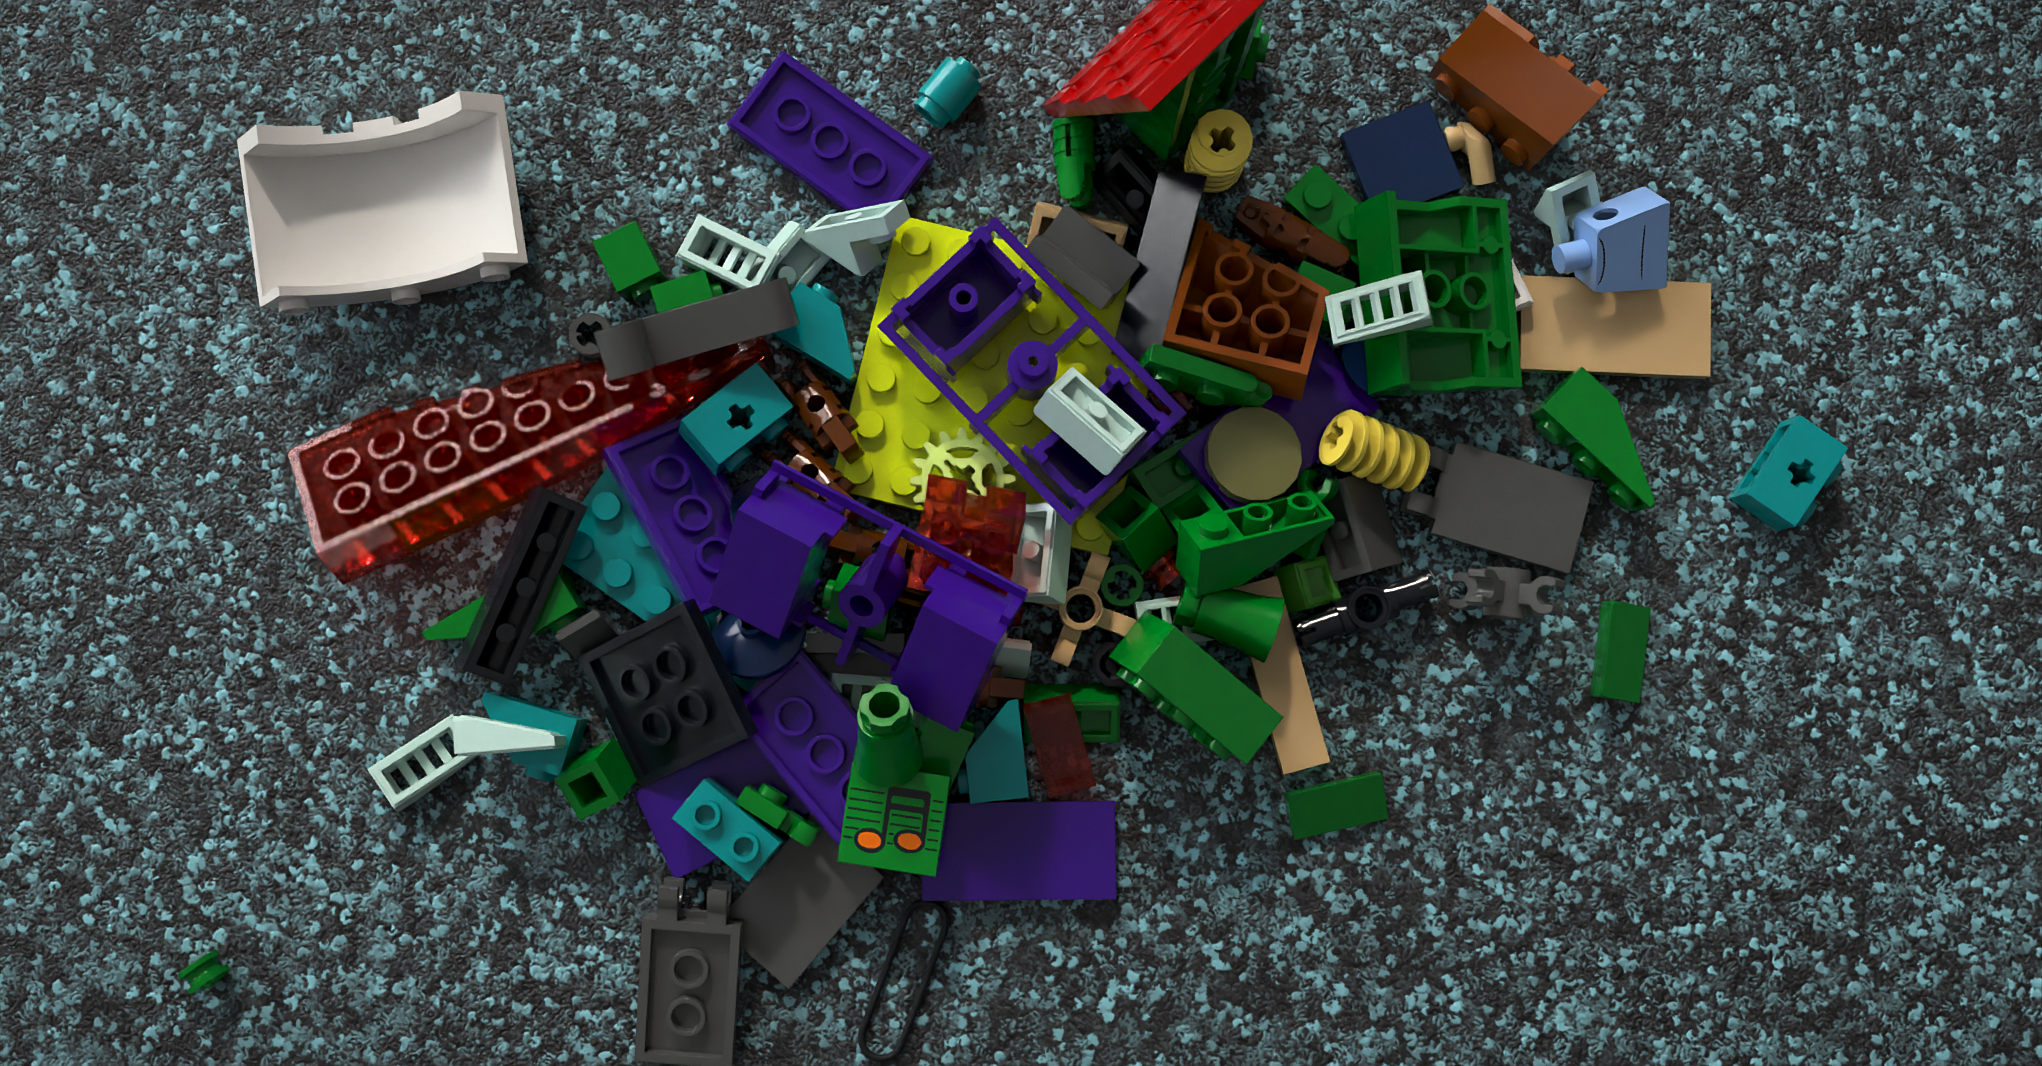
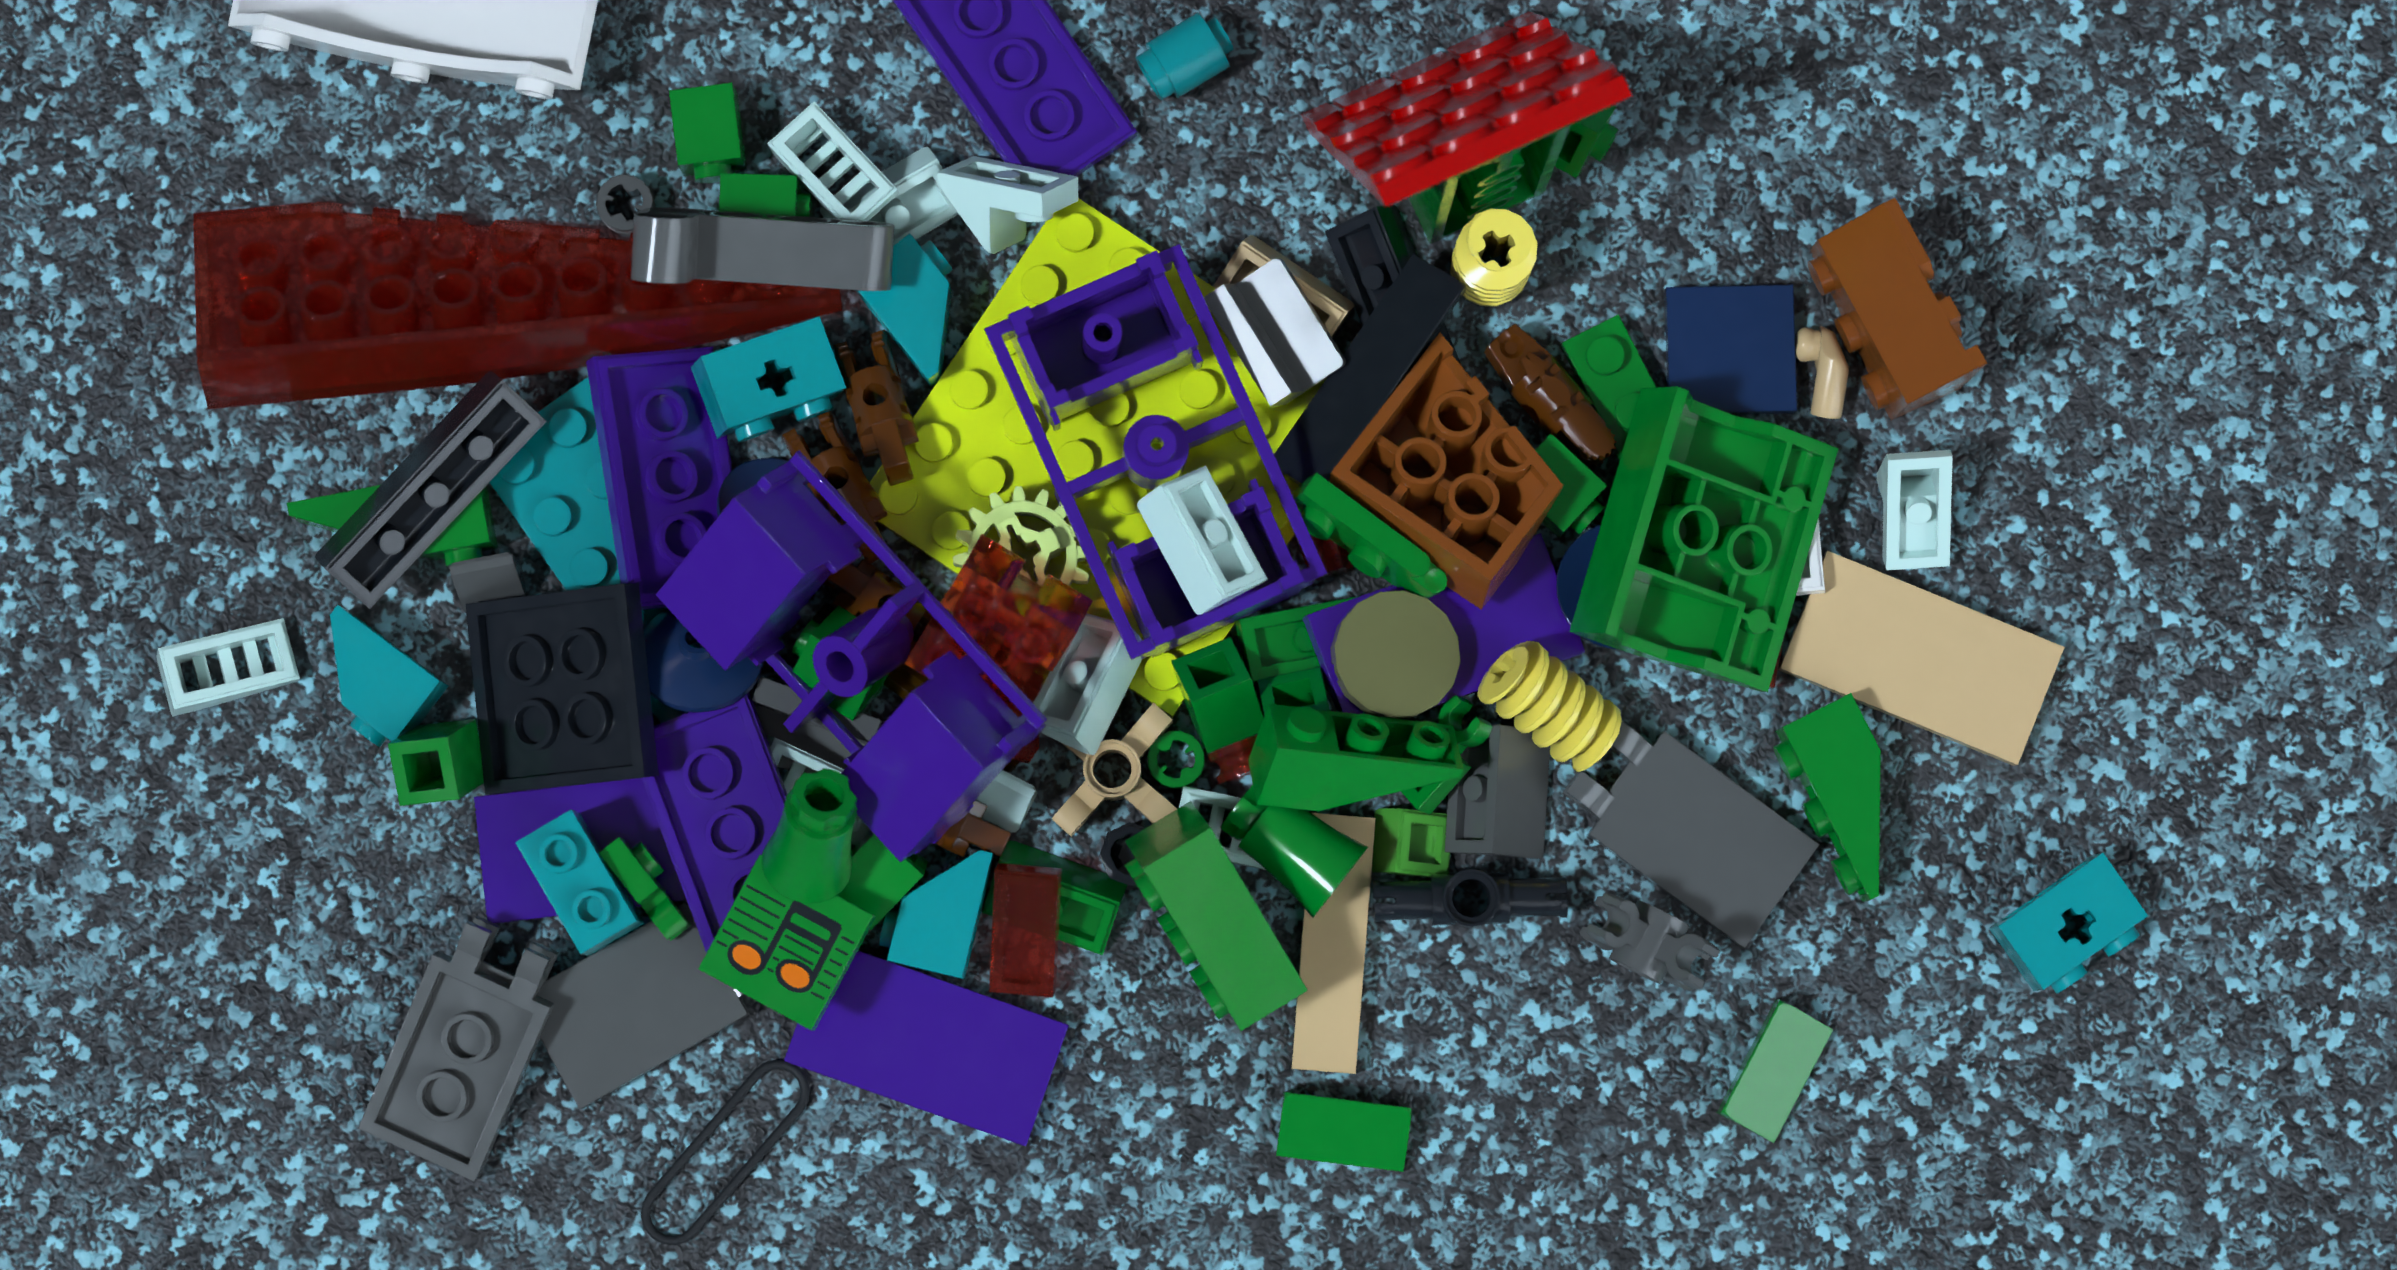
camera: 20 degrees right, 0 degrees up
(488, 736) = (324, 662): light aqua slope -> none
(1074, 159) = (1311, 203): green hinge -> none
(1400, 322) = (1659, 540): light aqua slope -> none
(1619, 244) = (1954, 556): light blue torso -> none

